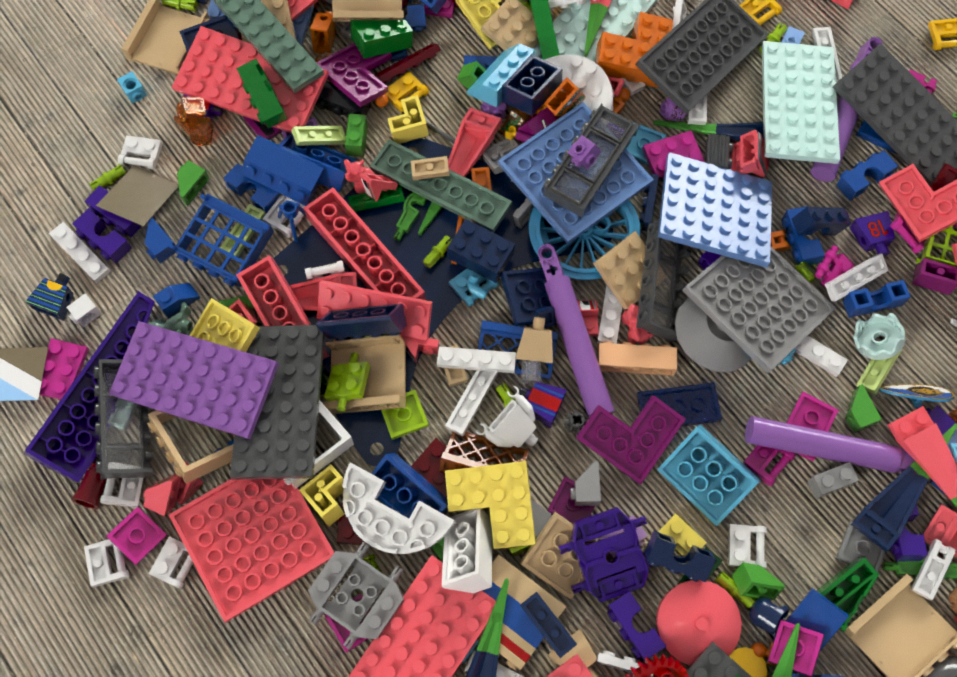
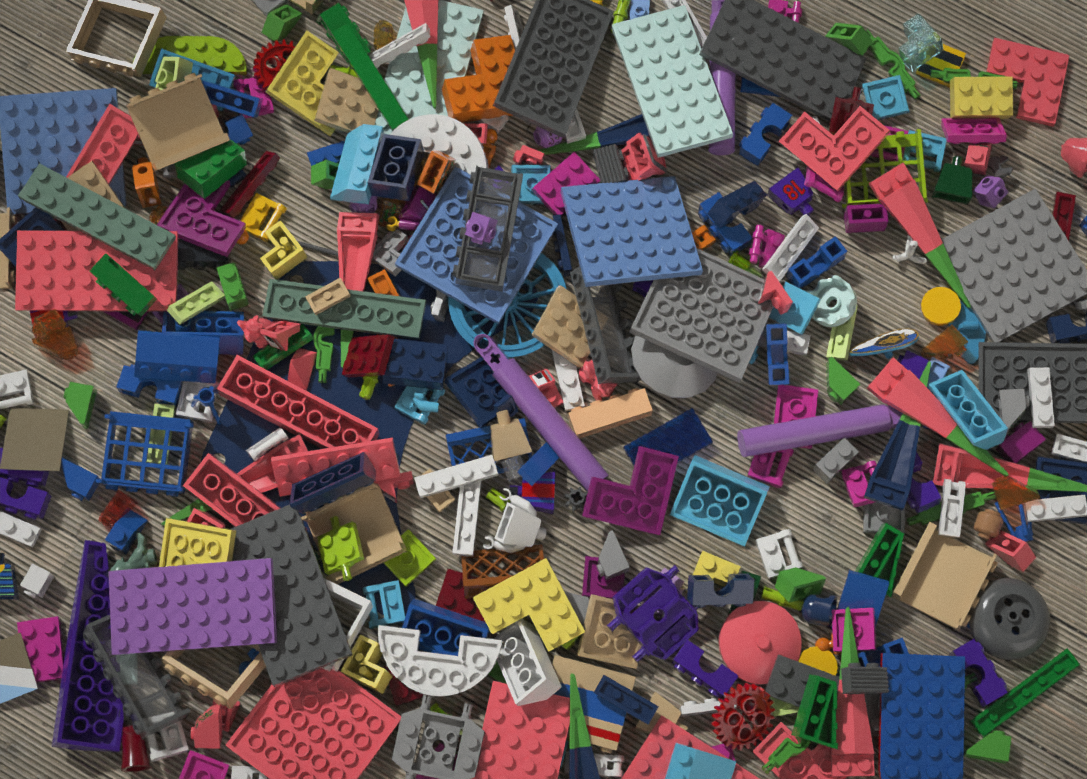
camera: 25 degrees left, 5 degrees up
(179, 274) = (116, 509): none -> clear red leg
(372, 448) = (391, 604): none -> medium azure plate
(384, 220) = (301, 368): none -> coral slope
(442, 229) = (368, 356): none -> dark red plate
(554, 376) = (538, 464): none -> blue tile
(650, 120) = (529, 155): none -> coral bracket
(811, 362) = (777, 354): none -> blue arch
(830, 308) = (773, 290): none -> coral slope
(841, 329) = (801, 310): none -> medium azure plate
(846, 510) = (856, 482): none -> dark pink plate

